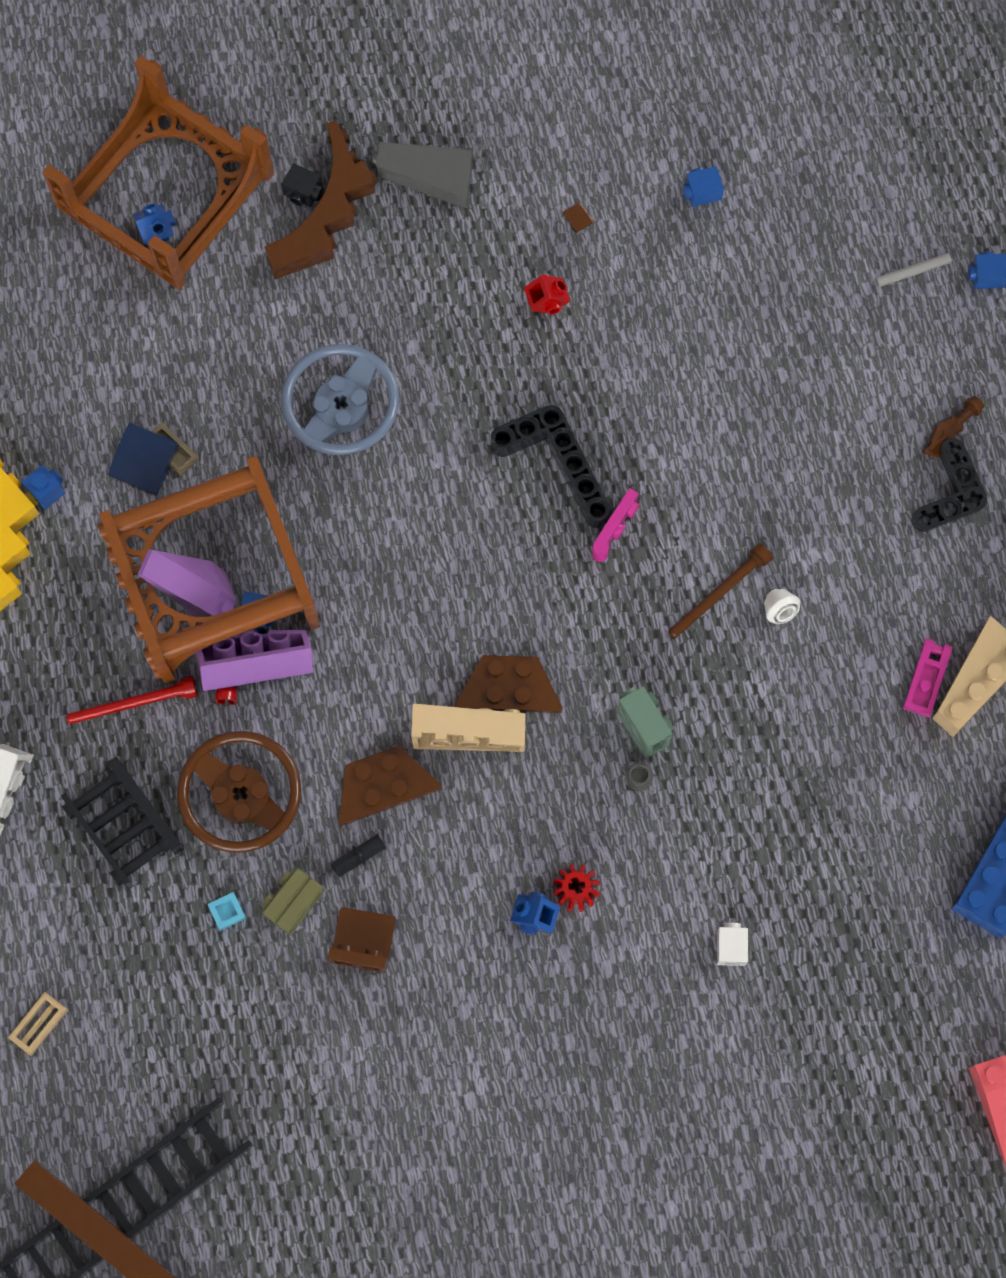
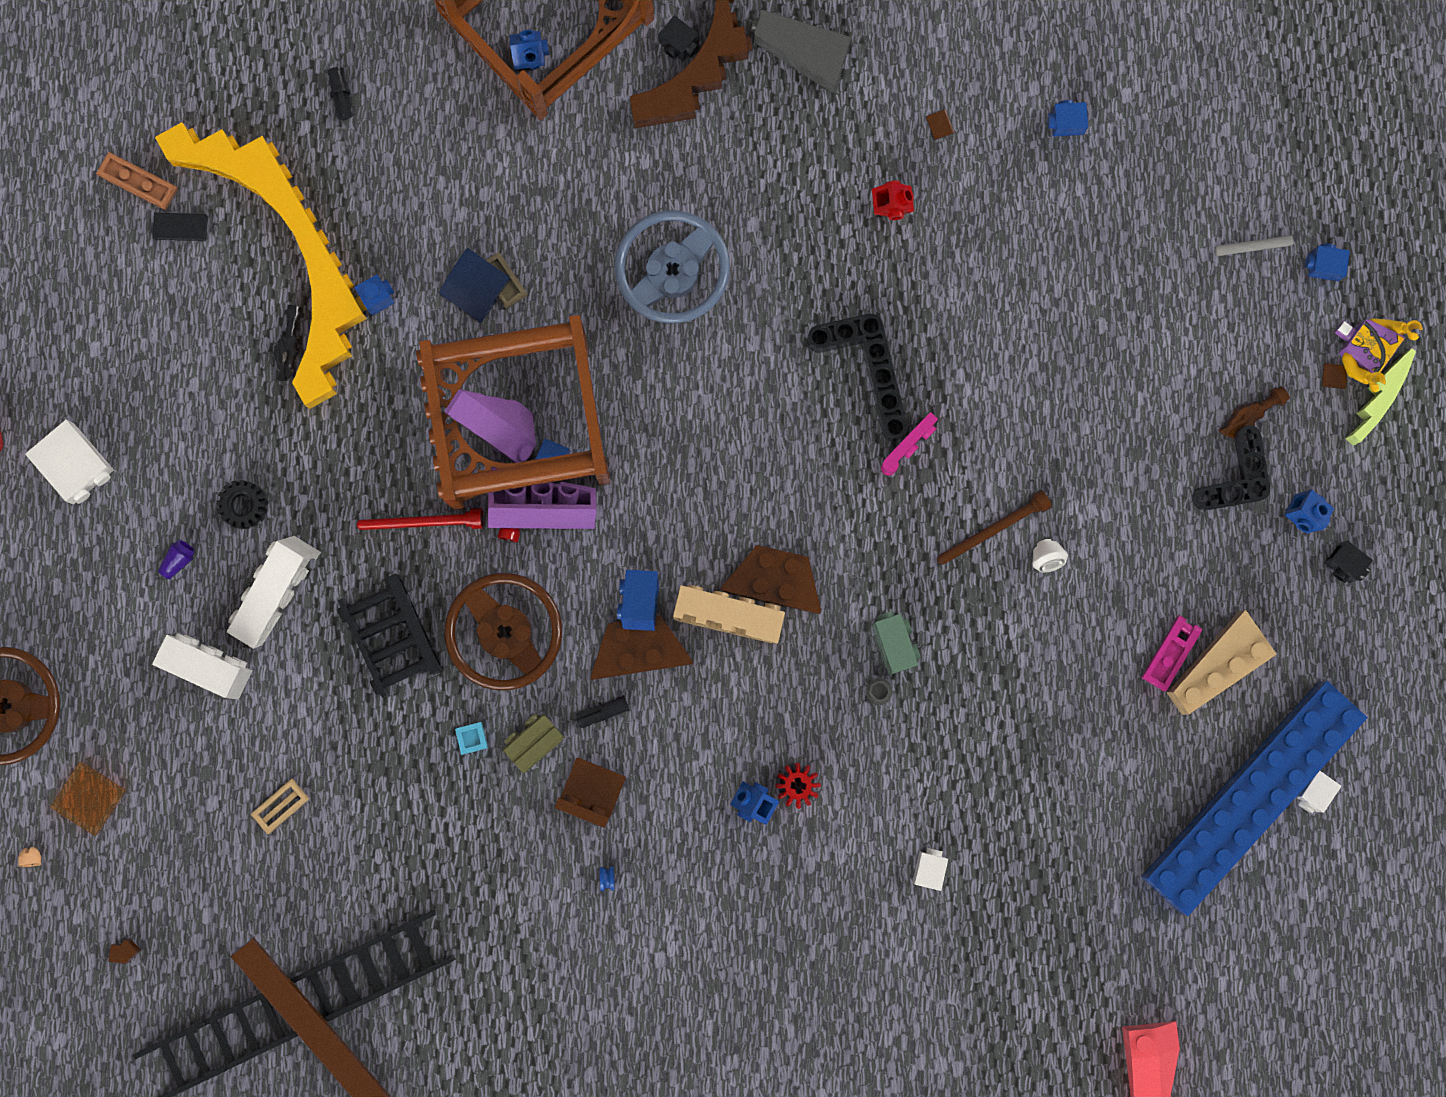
camera: 10 degrees right, 10 degrees up
(373, 732) = (639, 600): none -> blue brick
(397, 1025) = (607, 878): none -> blue bush

